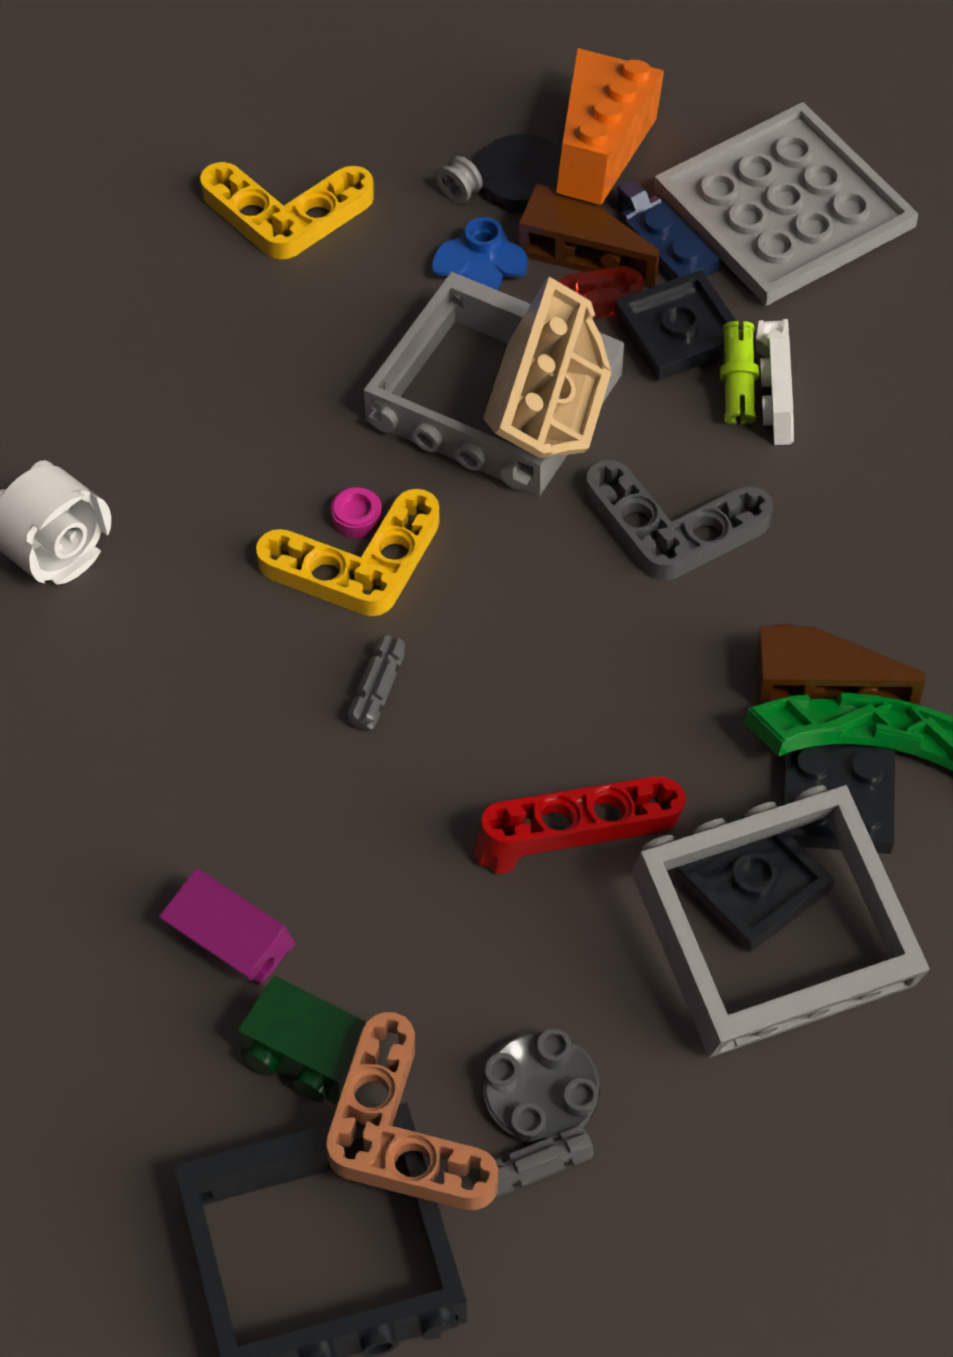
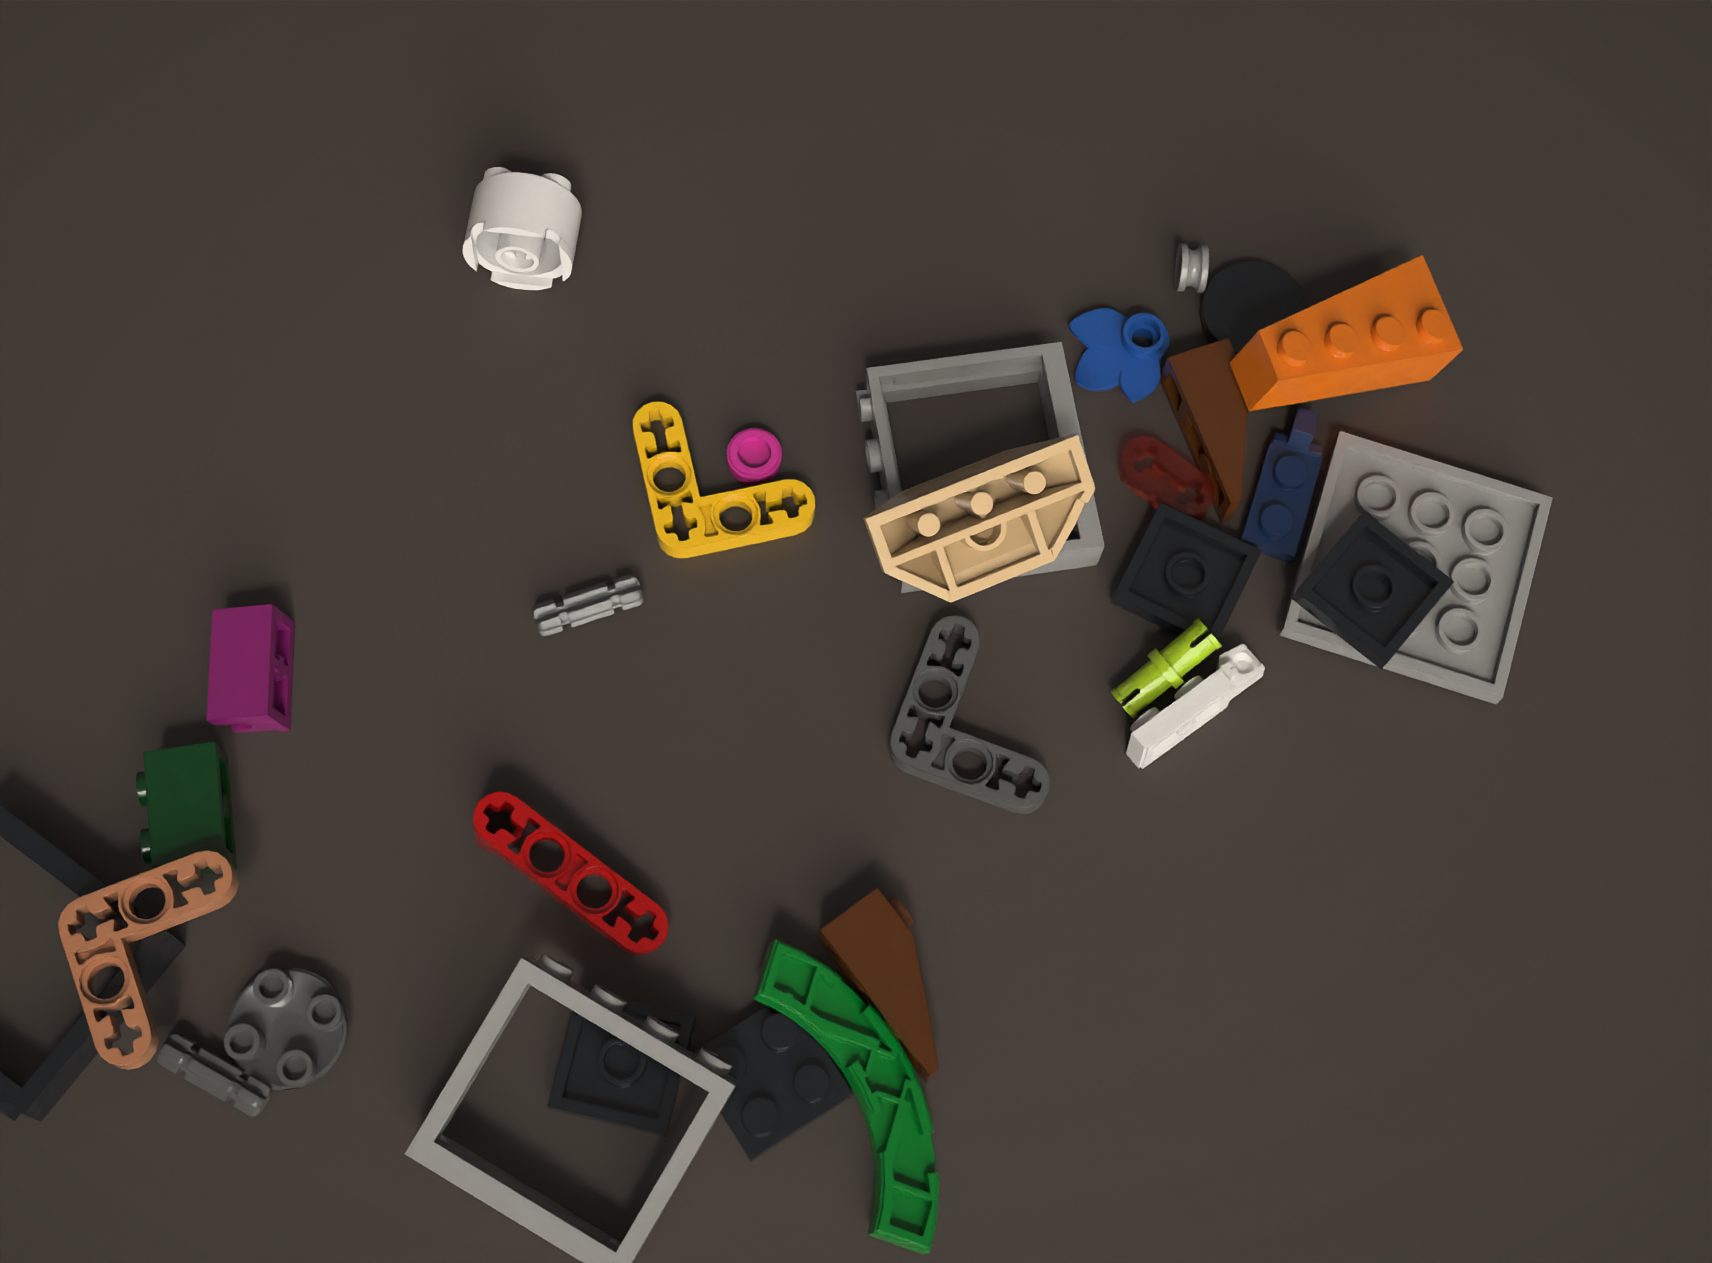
camera: 45 degrees right, 15 degrees up
(291, 217) = (1031, 163): yellow beam -> none
(787, 223) = (1372, 590): none -> black plate

